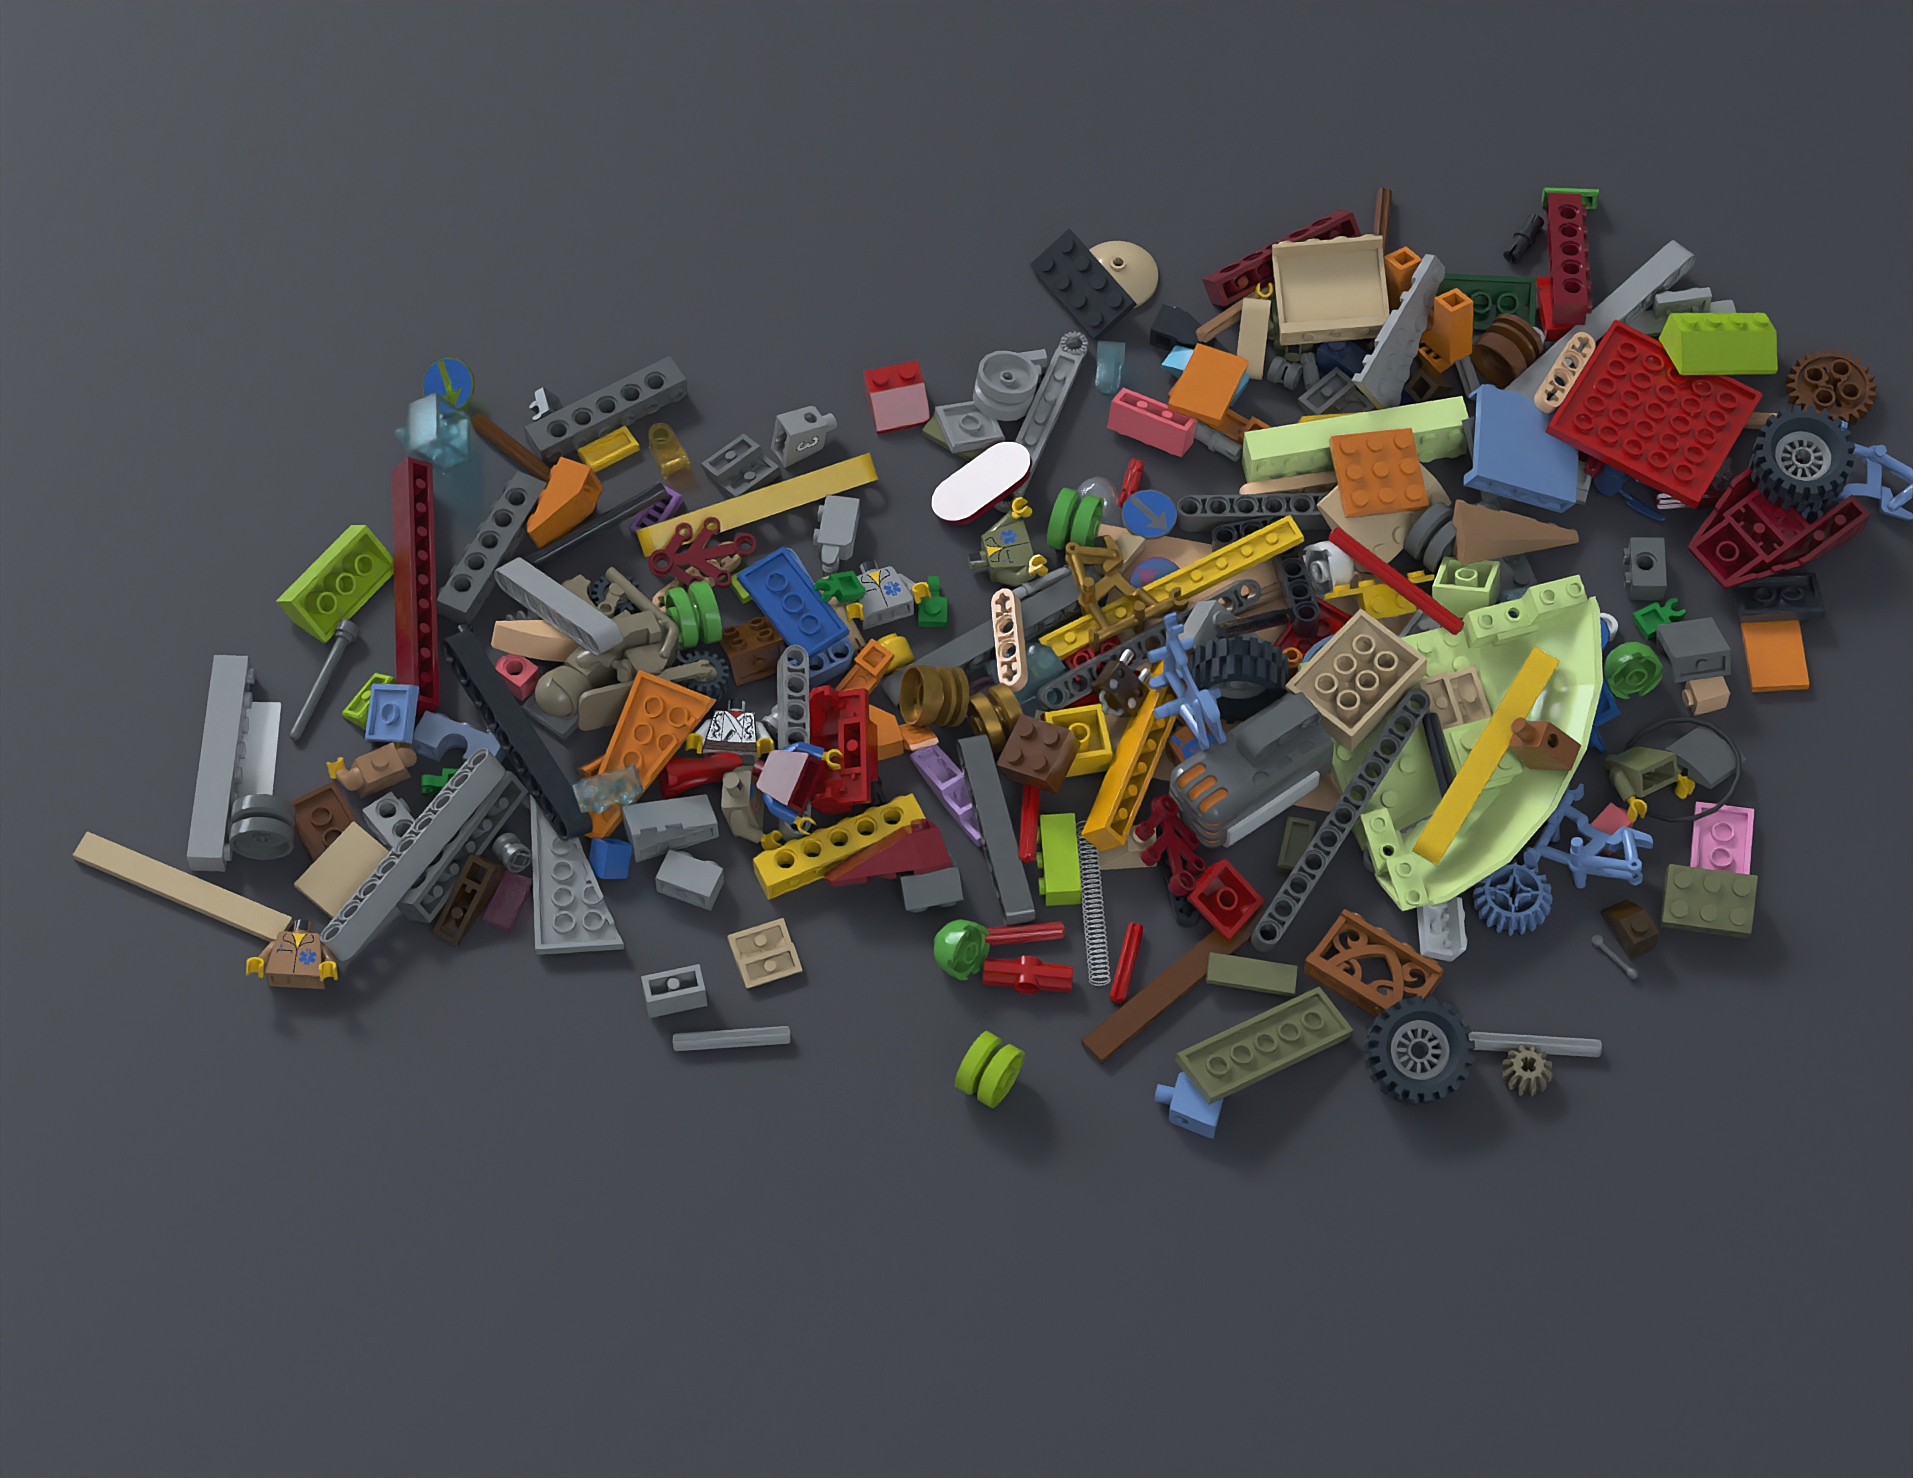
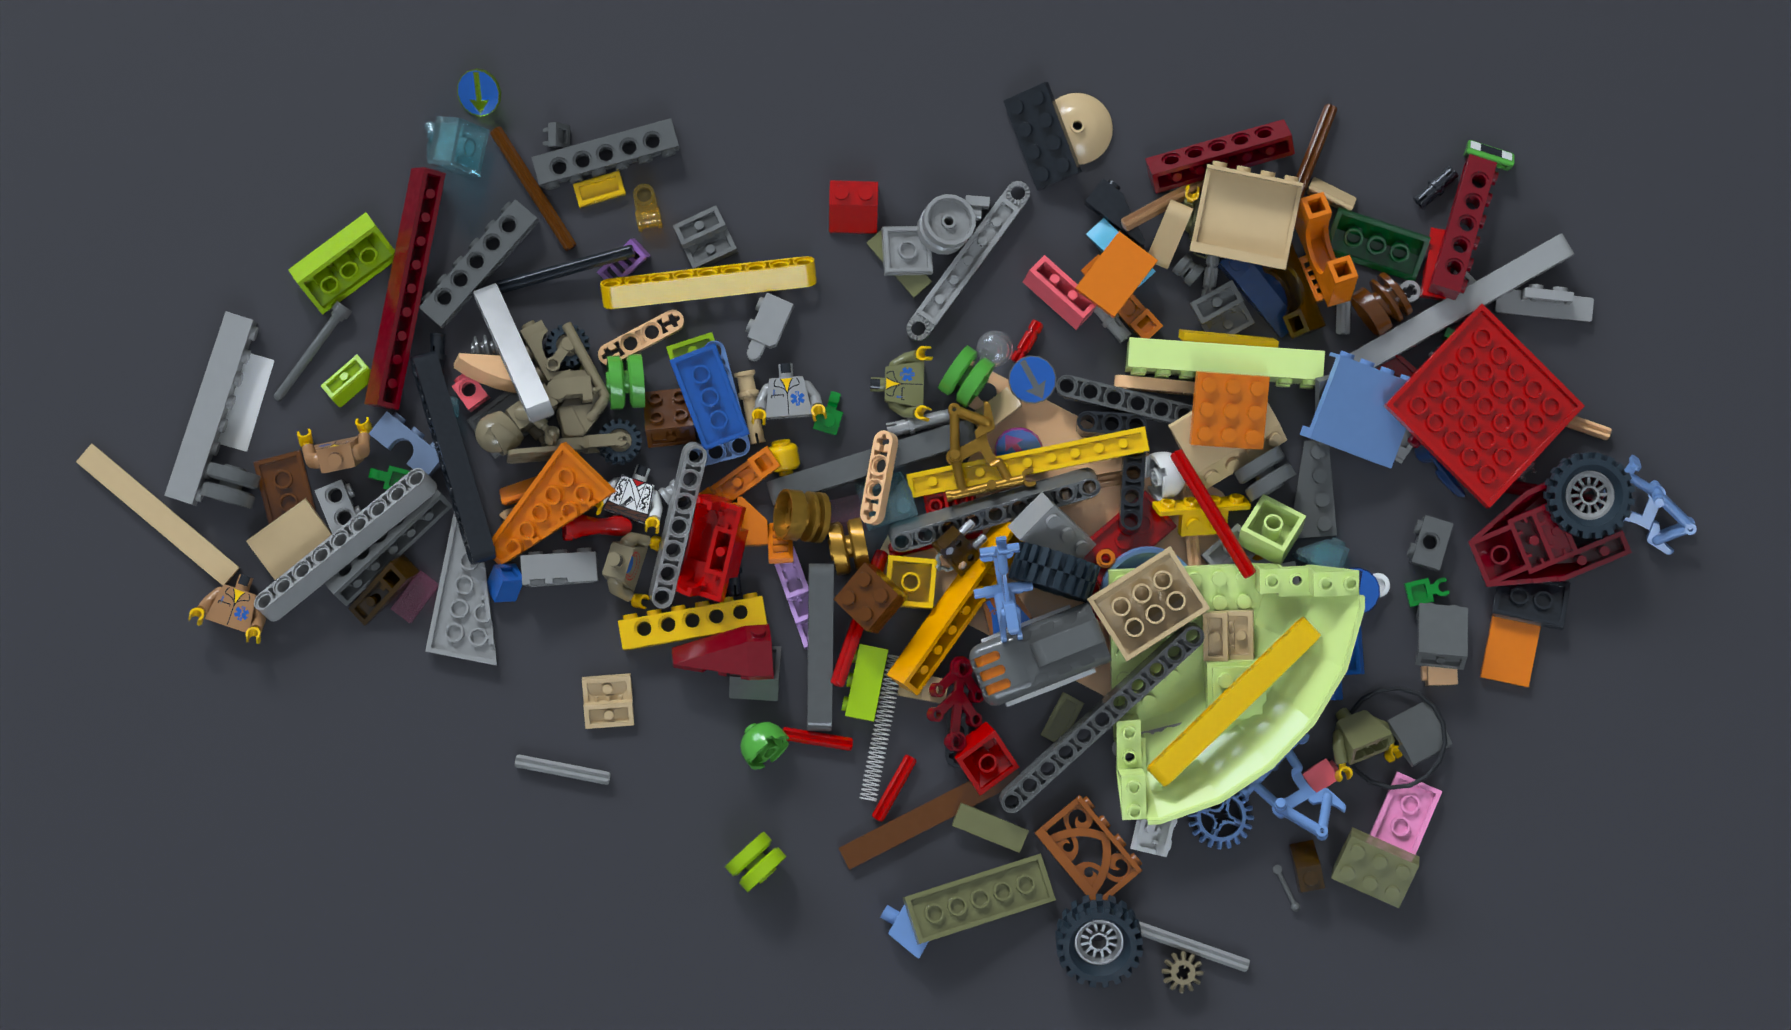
camera: 15 degrees right, 25 degrees up
(392, 713) = (358, 407): medium blue tile -> none
(512, 852) = (427, 559): dark grey wheel -> none
(565, 502) = (551, 240): orange slope -> none
(608, 788) = (513, 536): clear light blue brick -> none
(674, 991) = (525, 721): light grey brick -> none
(690, 879) = (565, 620): light grey brick -> none
(697, 556) = (644, 324): dark red plant -> none
(790, 779) = (662, 568): torso -> none
(800, 434) = (753, 224): light grey torso -> none
(842, 585) = (754, 390): green plate -> none
(982, 483) = (901, 313): tile -> none
(1028, 975) = (811, 779): red piece -> none
(1109, 360) = (1043, 216): clear light blue piece -> none
(1252, 624) = (1078, 529): black axle -> none
(1399, 338) = (1291, 279): light grey wing -> none
(1438, 751) = (1198, 683): black axle -> none
(1496, 534) = (1308, 490): medium nougat wedge -> none
(1543, 745) = (1274, 707): dark orange torso -> none
(1563, 371) = (1417, 346): light nougat beam -> none
(1632, 669) = (1385, 634): bright green cylinder -> none
(1721, 343) = (1564, 351): lime slope -> none
(1852, 382) = (1668, 411): reddish brown gear -> none

